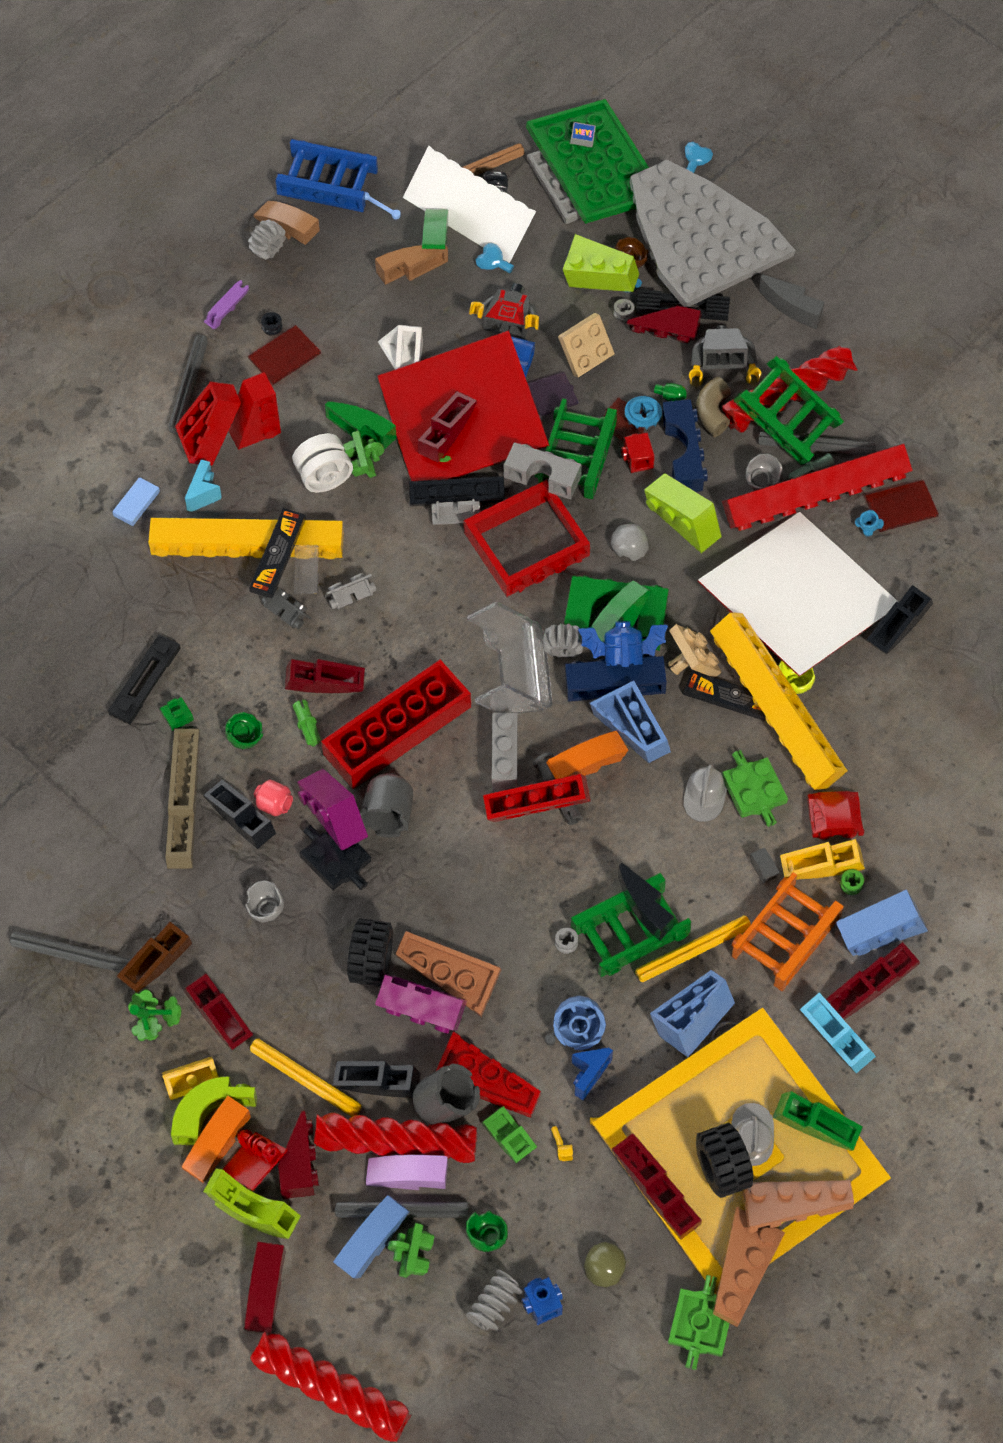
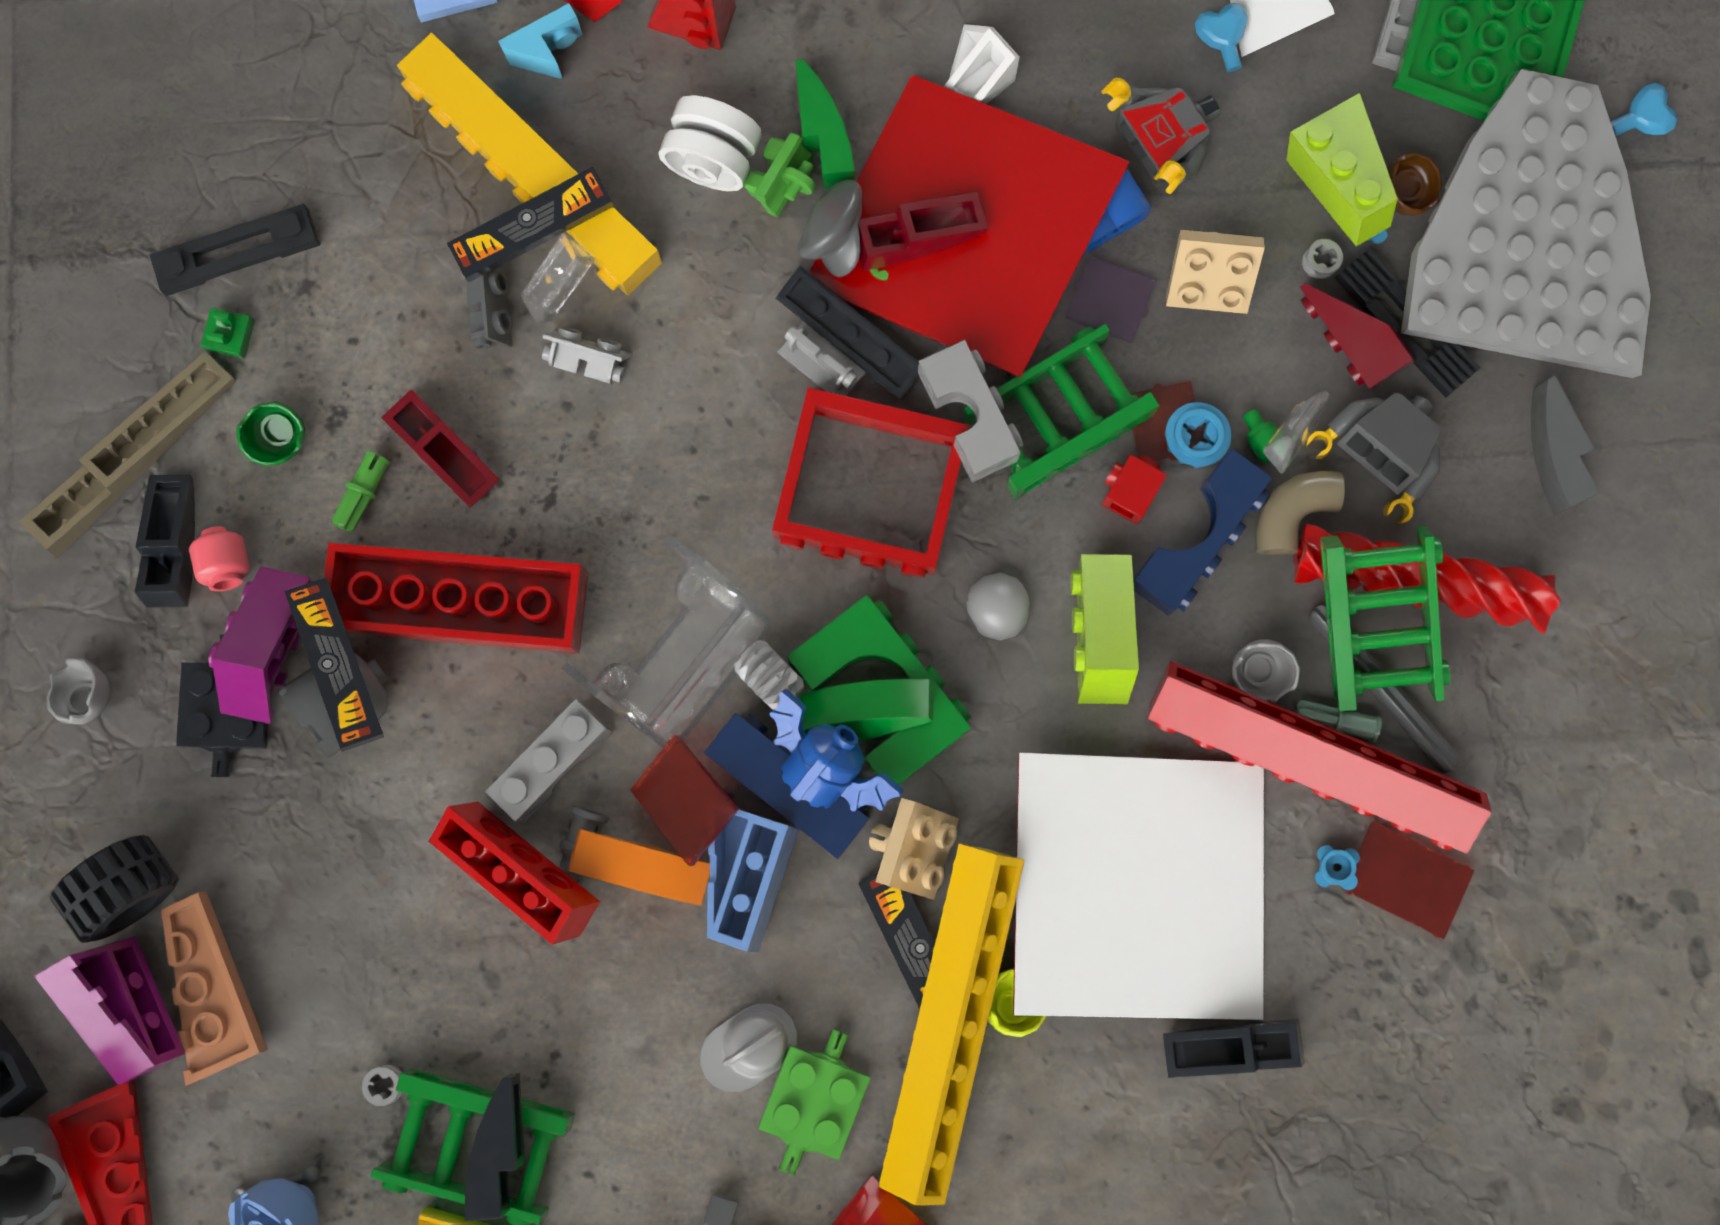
camera: 45 degrees right, 20 degrees up
(377, 776) = (334, 664): none -> tile
(409, 454) = (833, 228): none -> dark grey piece
(578, 714) = (684, 800): none -> clear red piece
(680, 375) = (1295, 431): none -> clear slope

